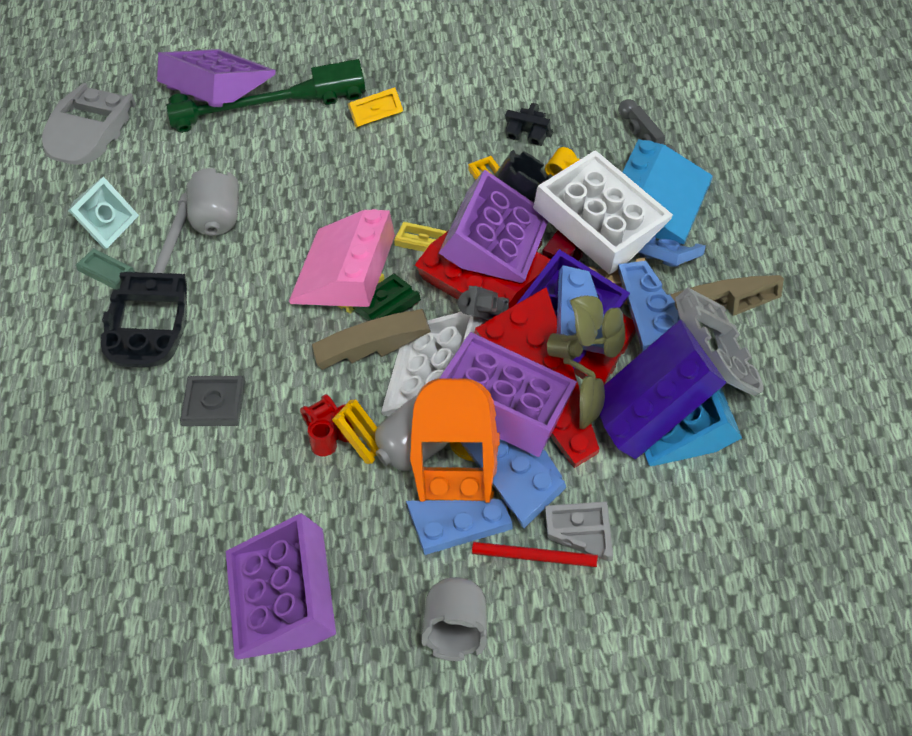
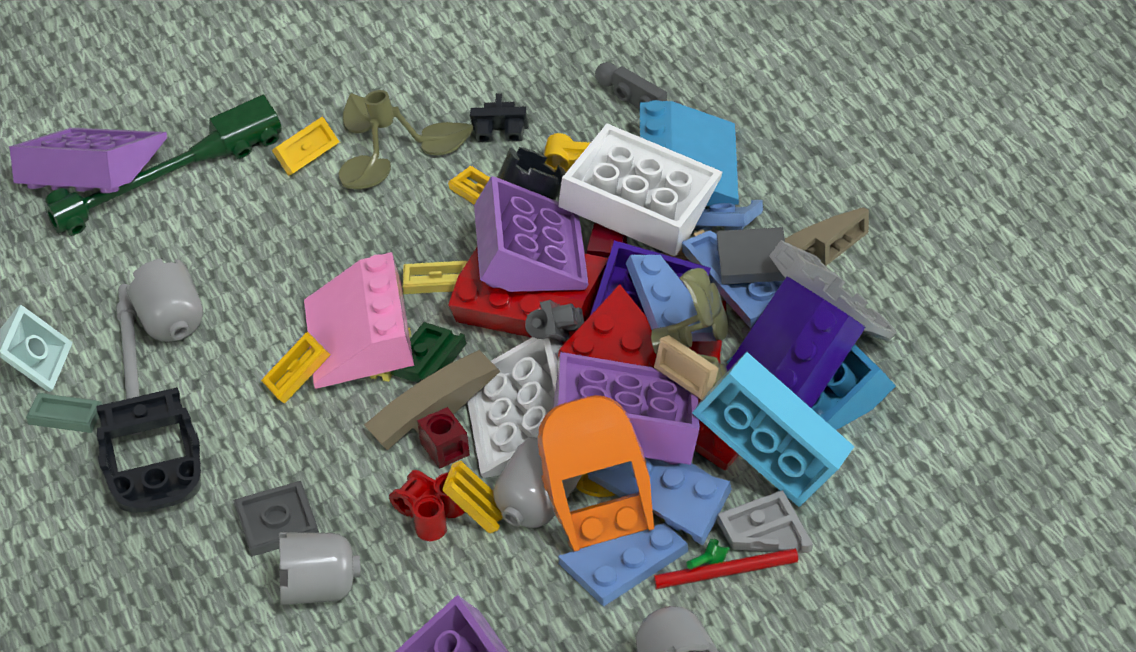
camera: 20 degrees left, 5 degrees down
(213, 452) = (315, 567): none -> light grey cylinder
(281, 282) = (299, 370): none -> yellow tile
(364, 373) = (443, 437): none -> dark red brick
(435, 94) = (377, 112): none -> olive plant
(529, 539) = (712, 555): none -> green hand
(564, 374) = (685, 367): none -> tan tile
(612, 449) = (773, 429): none -> medium azure brick
(660, 288) = (746, 255): none -> dark grey tile

